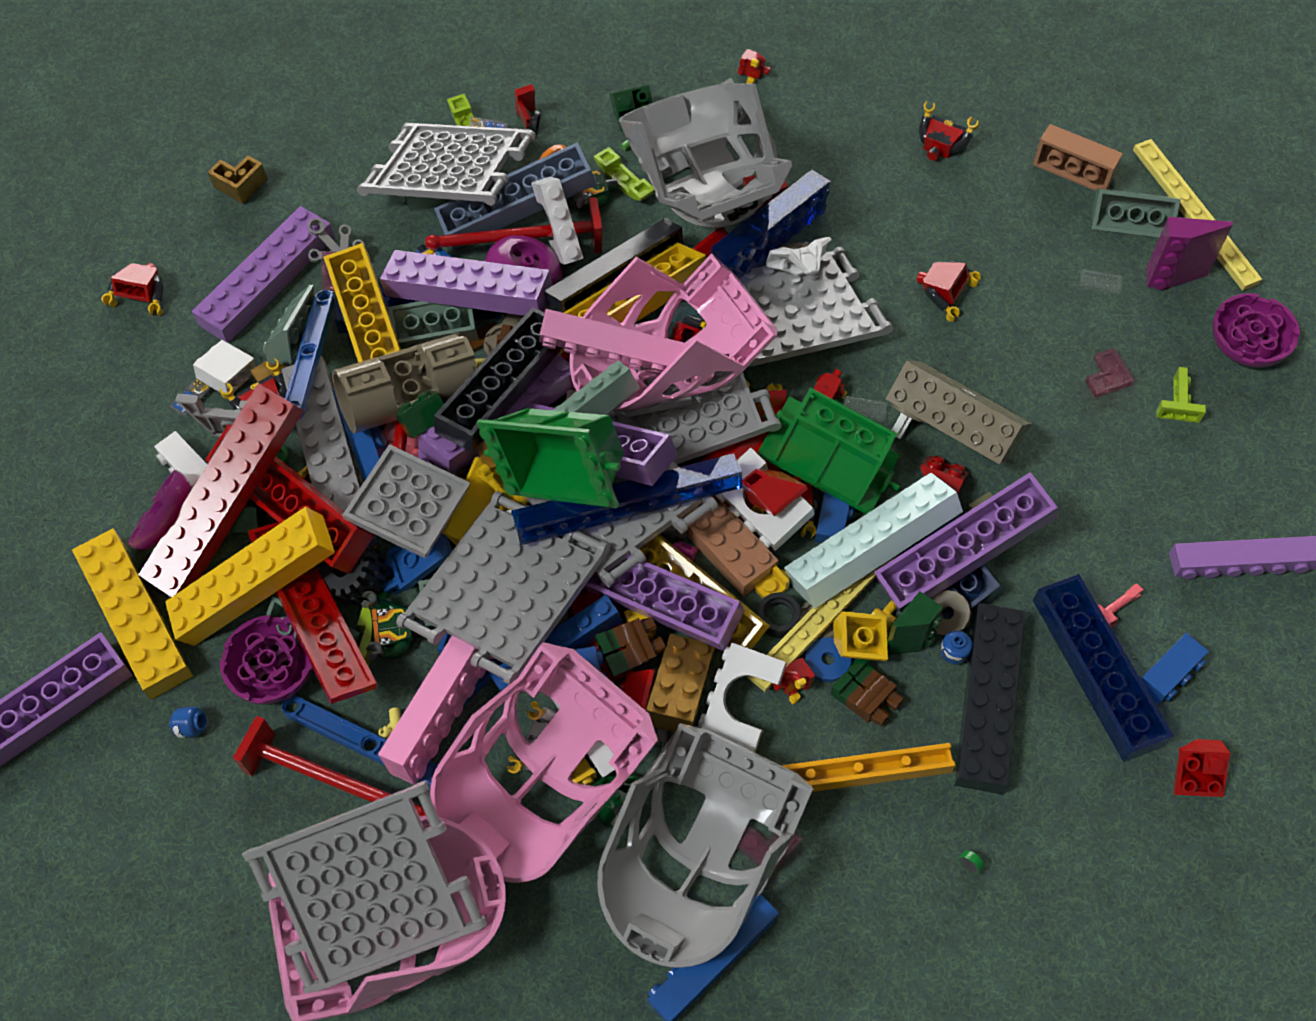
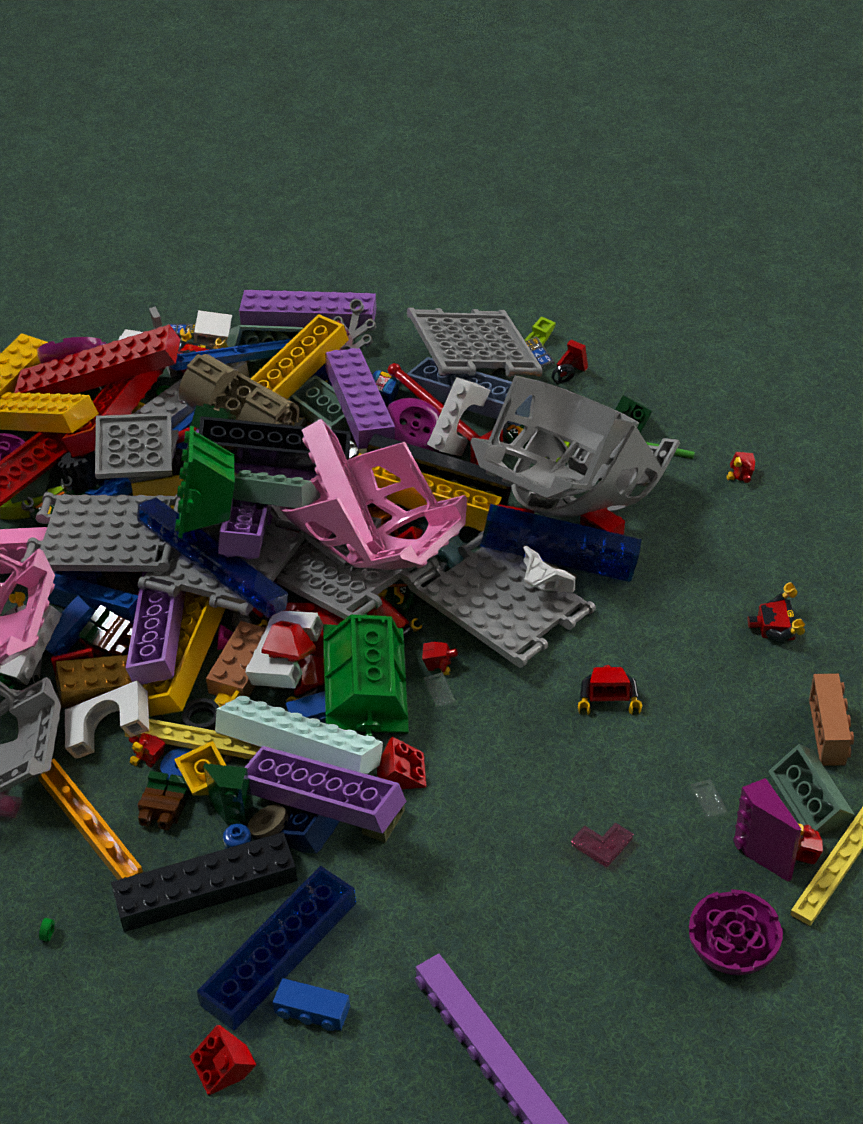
camera: 60 degrees right, 15 degrees down
(136, 283) = (252, 259): red torso -> none
(238, 181) = (379, 258): pearl gold brick -> none
(956, 410) = (462, 739): dark tan piece -> none
(1131, 595) = (338, 935): coral brick -> none
(1181, 408) = (613, 906): lime bracket -> none

